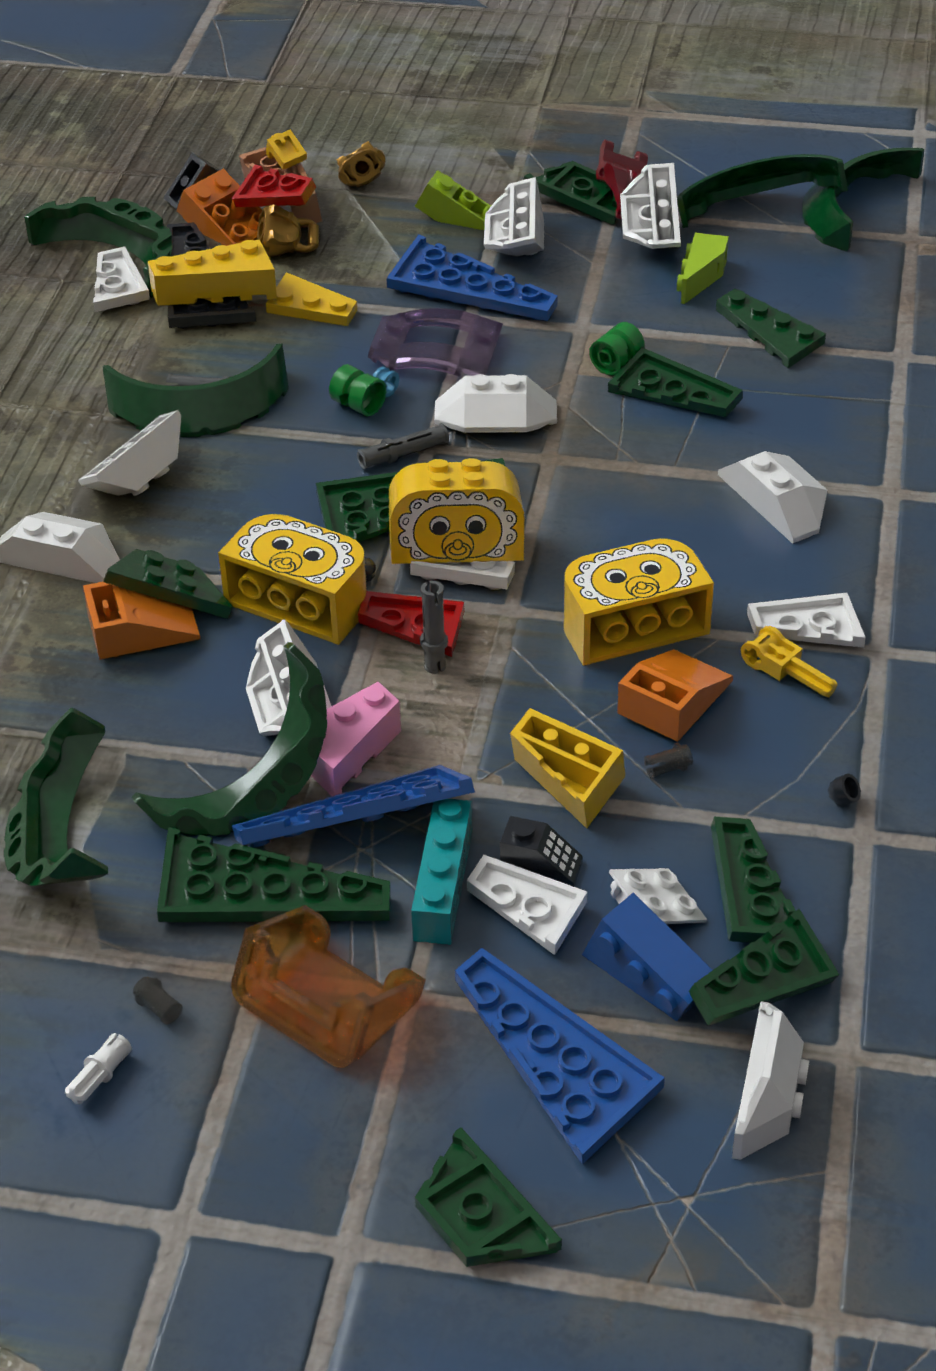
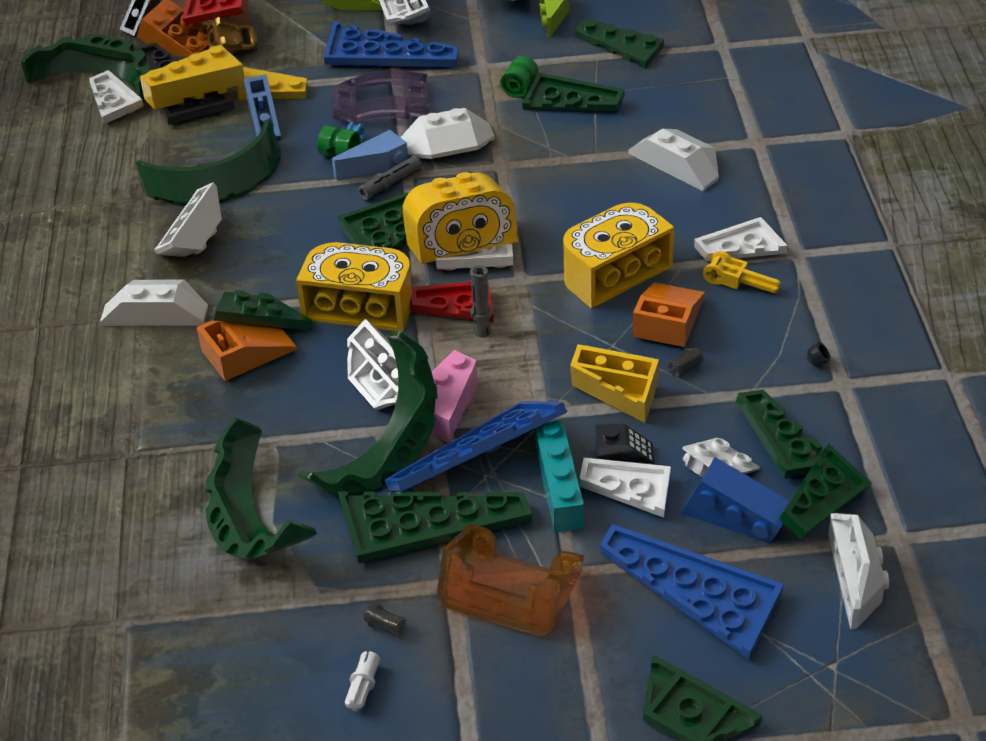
camera: 15 degrees left, 0 degrees up
(285, 322) = (260, 103): none -> medium blue slope
(389, 415) = (371, 156): none -> medium blue slope

